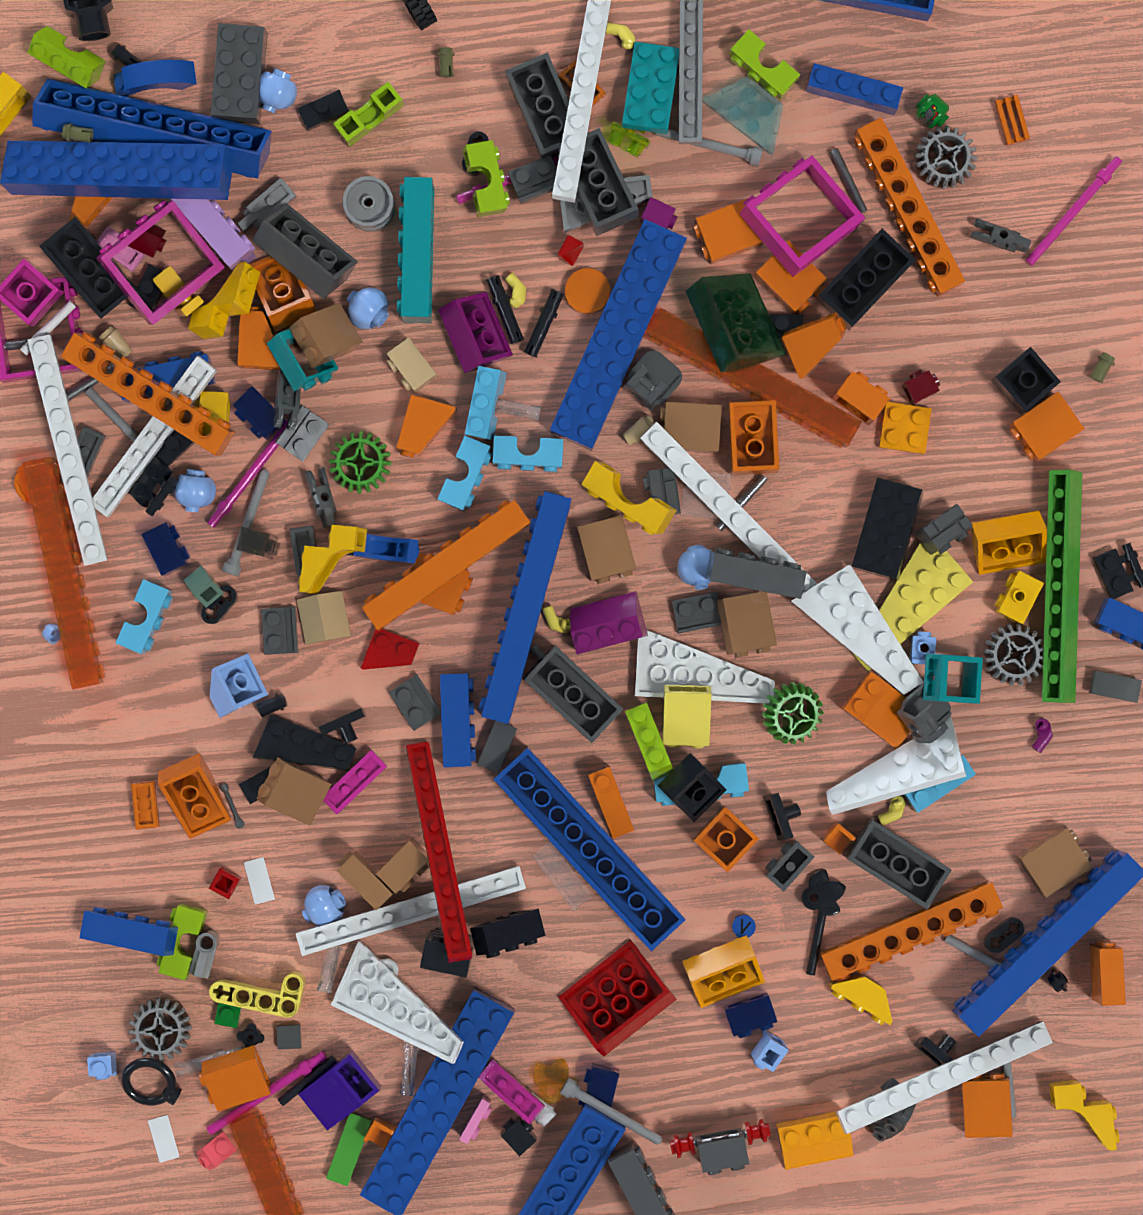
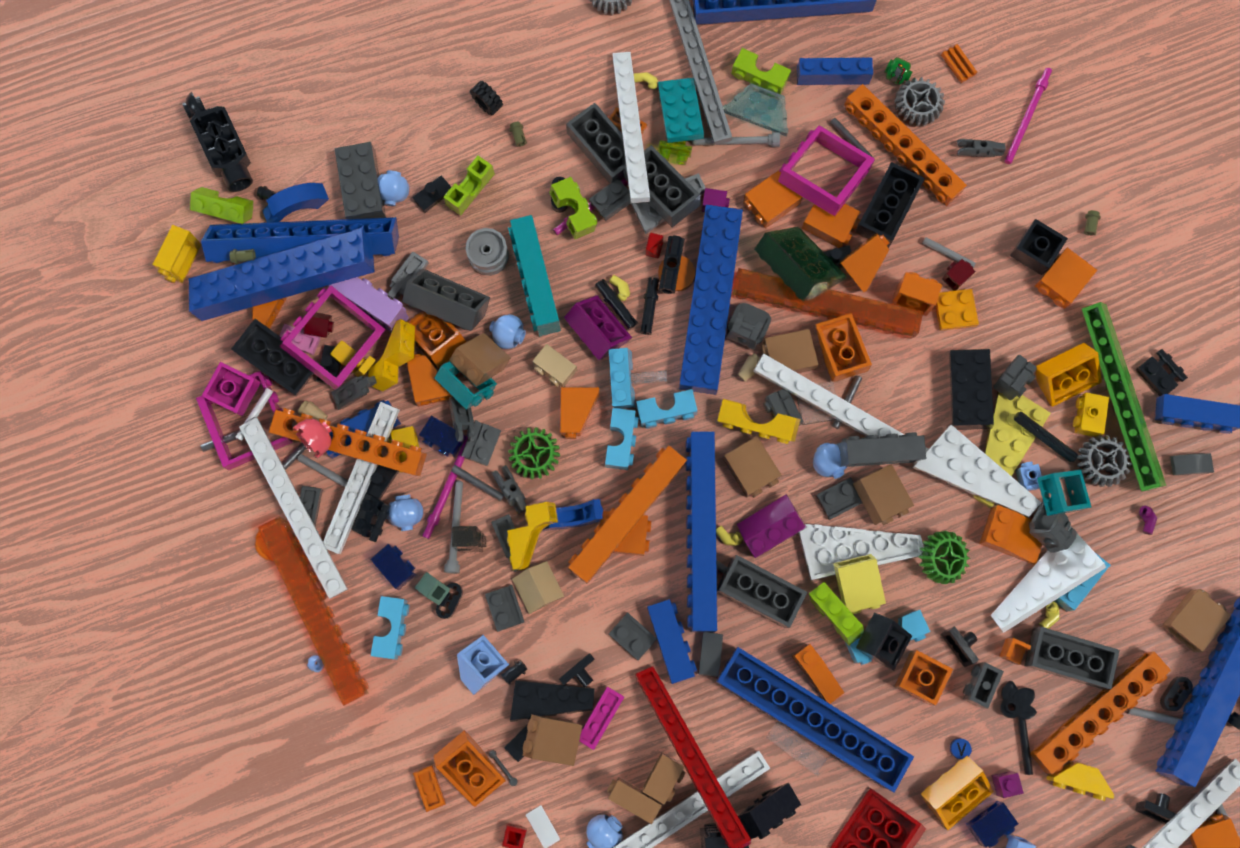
camera: 15 degrees left, 10 degrees down
(111, 379) = (314, 436): none -> coral cylinder
(168, 331) = (352, 391): none -> dark grey hinge
(285, 478) = (478, 483): none -> flat silver bar
(389, 651) = (599, 599): red wing -> none
(588, 268) = (673, 254): none -> black piece
(781, 978) = (1007, 784): none -> magenta brick
(918, 355) = (945, 251): none -> light grey bar
(955, 608) = (1045, 436): none -> black axle

